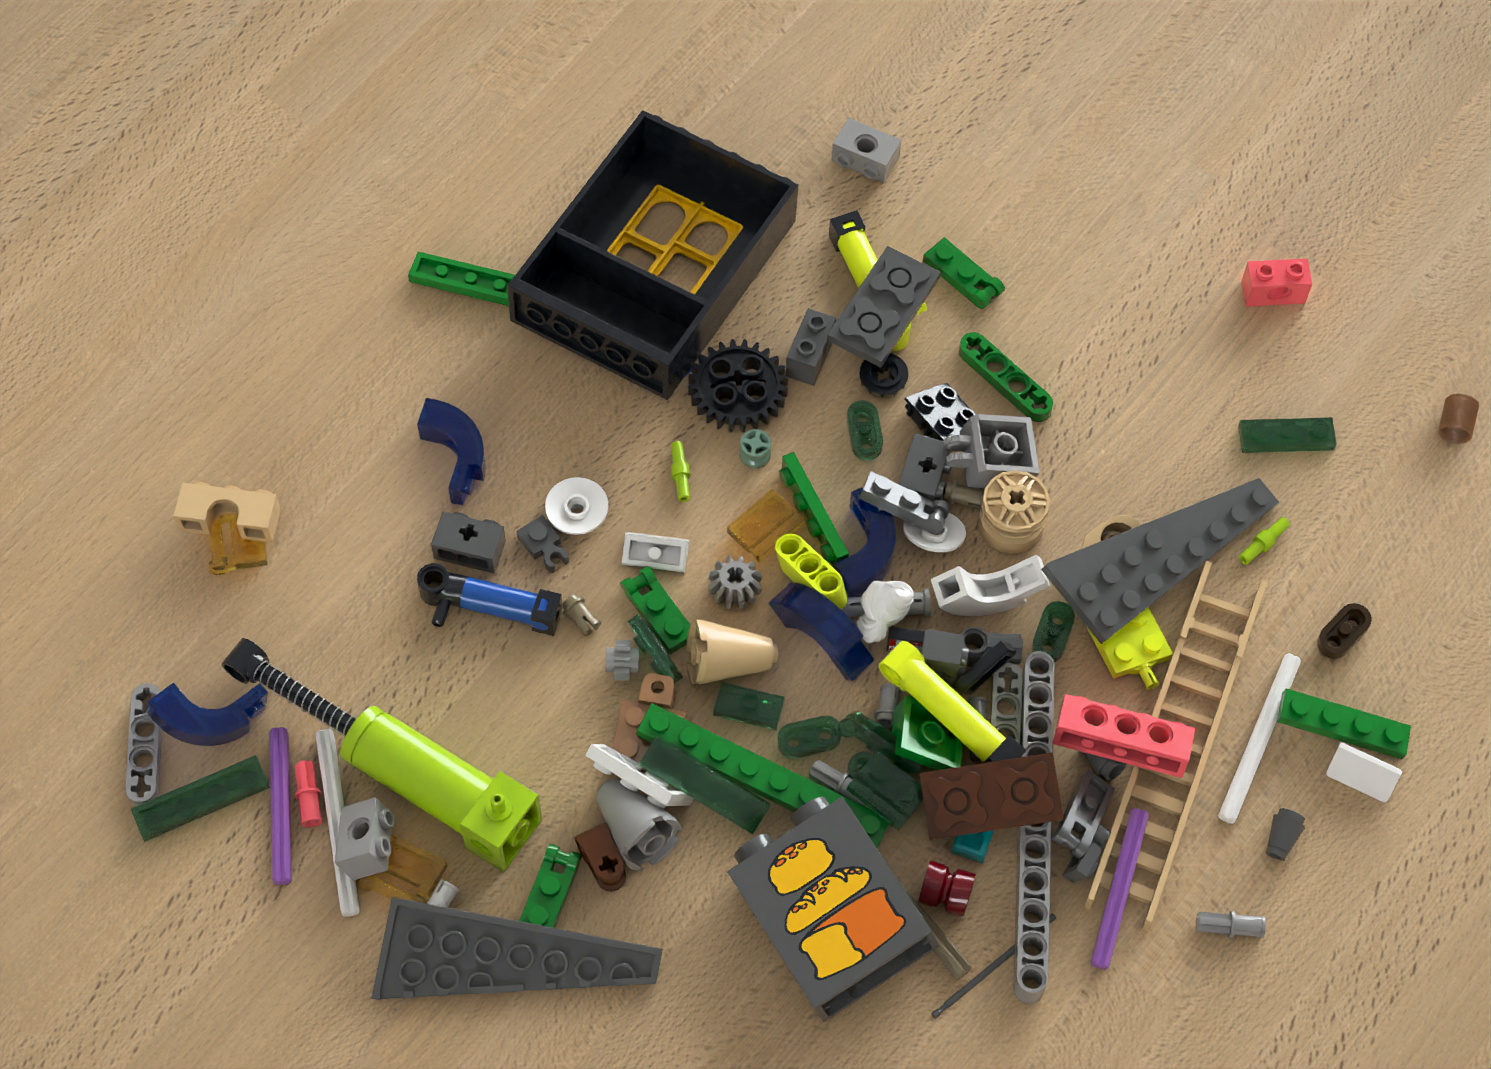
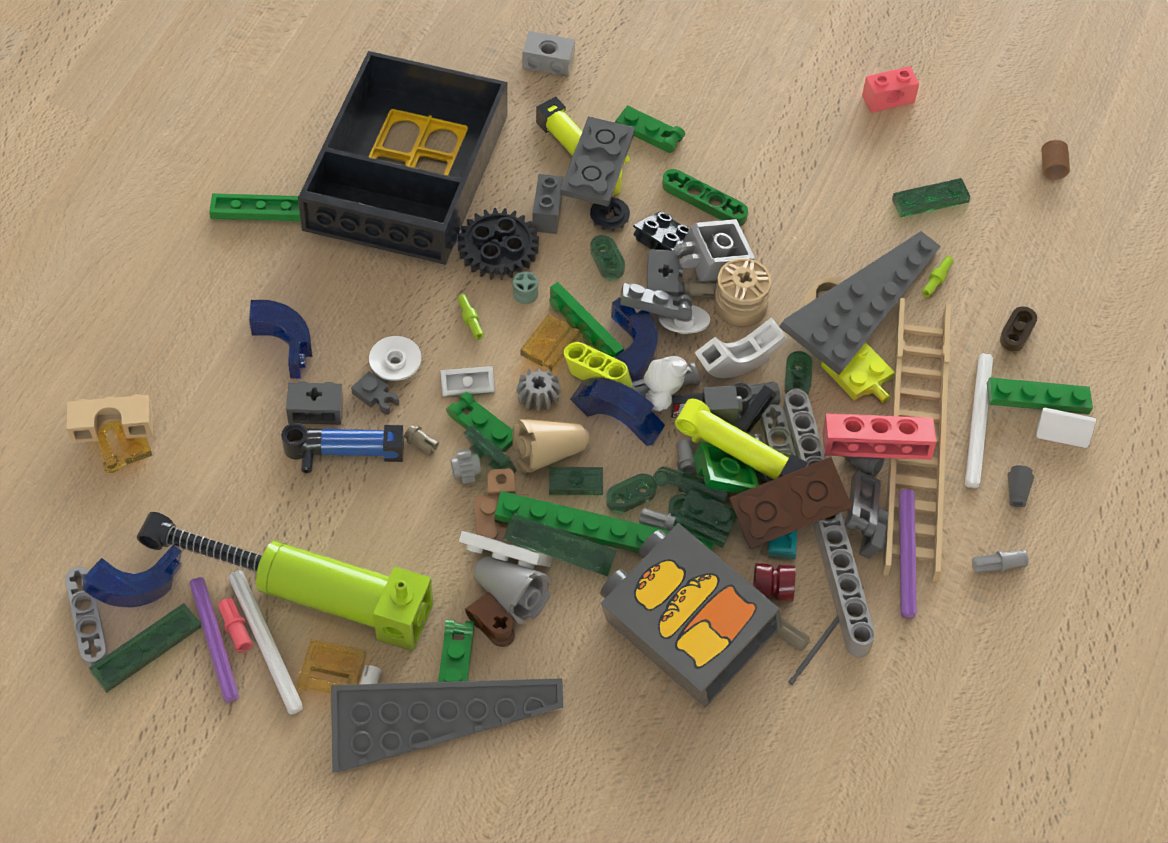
camera: 15 degrees left, 5 degrees down
(364, 838) = (294, 646): light grey brick -> none

